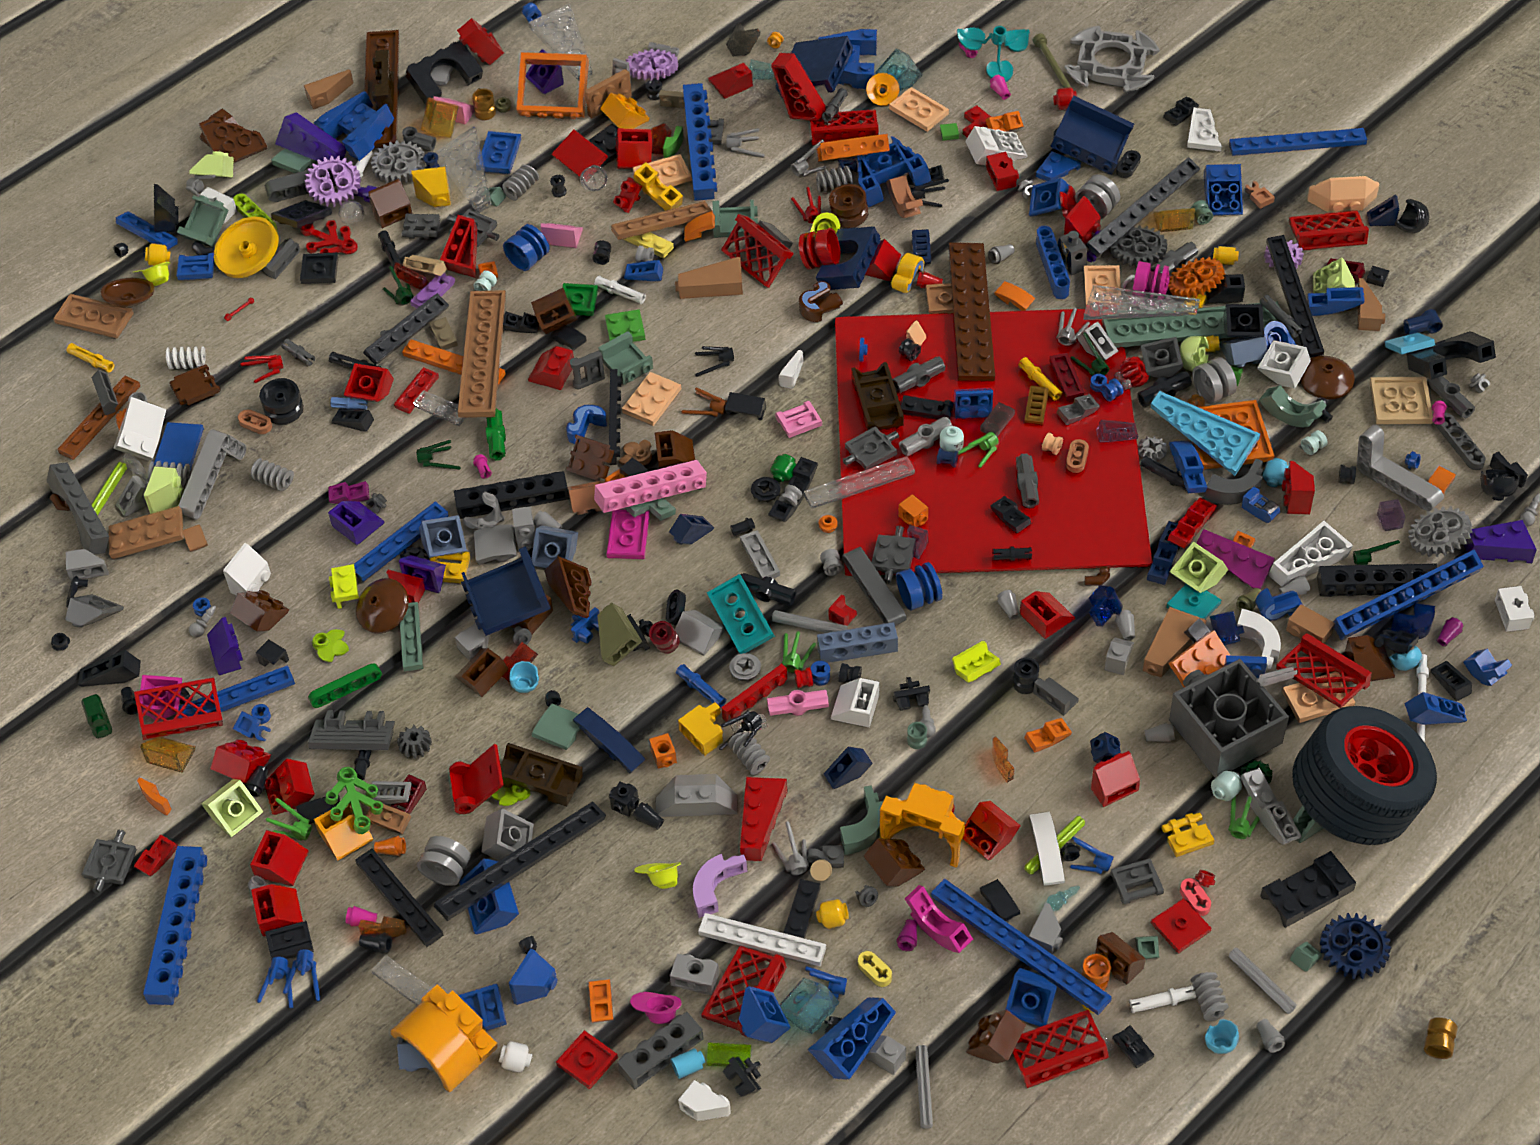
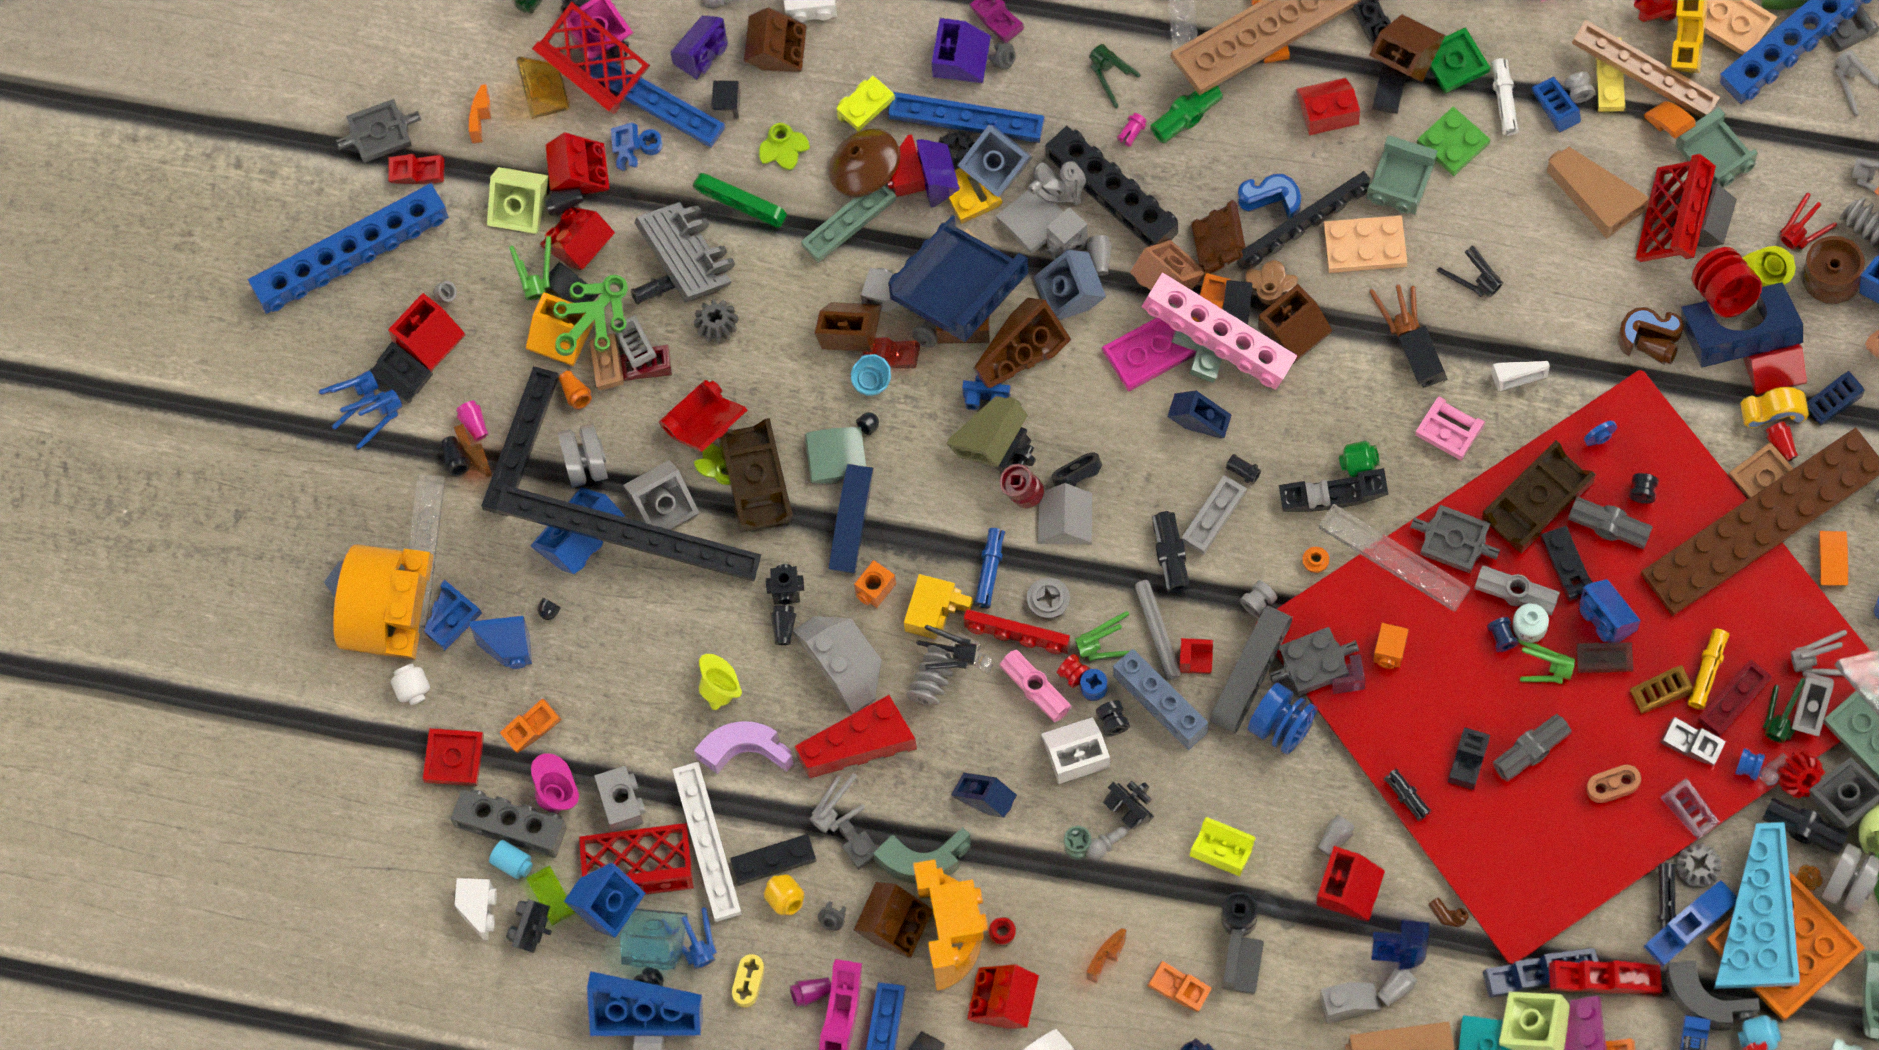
camera: 60 degrees right, 15 degrees up
(278, 858) = (484, 291): red slope -> none
(593, 369) = (1352, 146): dark grey plate -> none
(601, 252) = (1548, 36): black wheel -> none
(735, 626) = (1119, 561): teal plate -> none
(763, 483) = (1324, 450): black gear -> none
(821, 870) = (832, 848): tan tile -> none
(916, 333) = (1673, 481): light nougat slope -> none
(1052, 443) = (1610, 743): light nougat wheel -> none
(1097, 378) = (1752, 733): blue bush -> none

